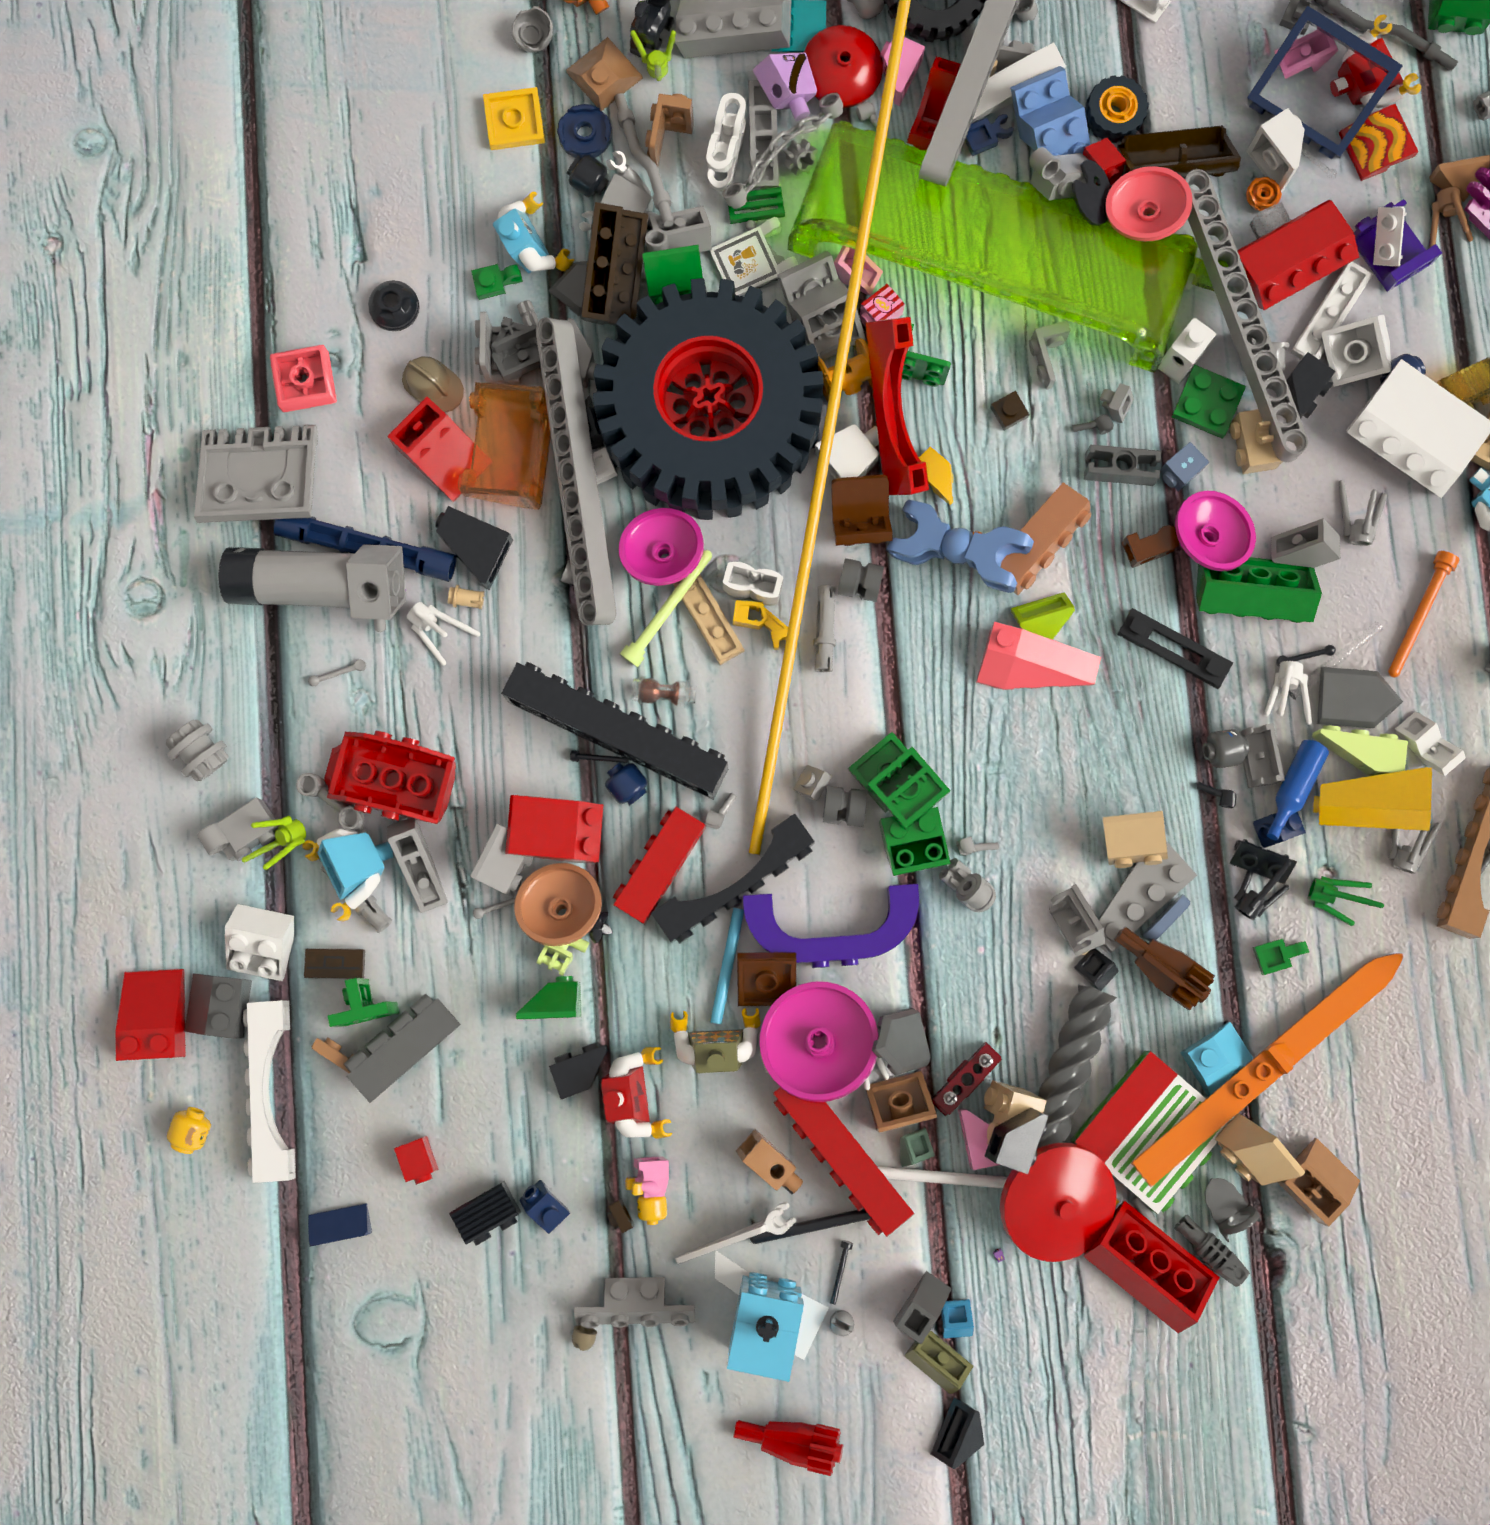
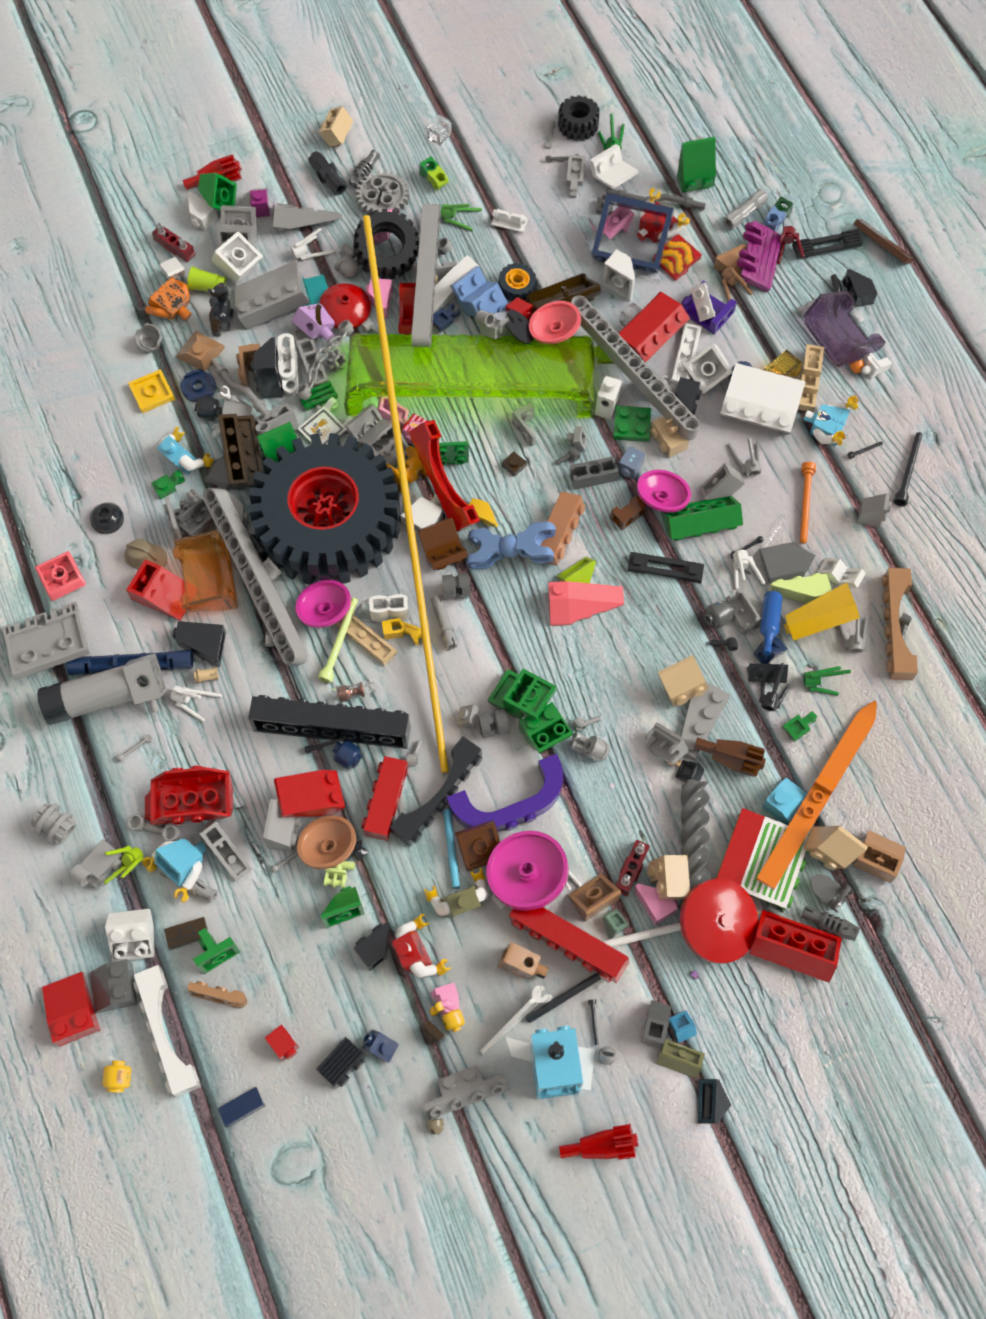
camera: 20 degrees left, 15 degrees down
(396, 1055) = (253, 967): dark grey windscreen -> none
(656, 60) = (230, 334): lime plant -> none
(689, 145) = (266, 370): none -> black slope
(902, 1041) = (583, 854): dark grey tile -> none
(1017, 1139) = (676, 885): slope -> none
(1167, 918) = (722, 725): sand blue tile -> none
(1266, 186) = (620, 298): orange plate -> none

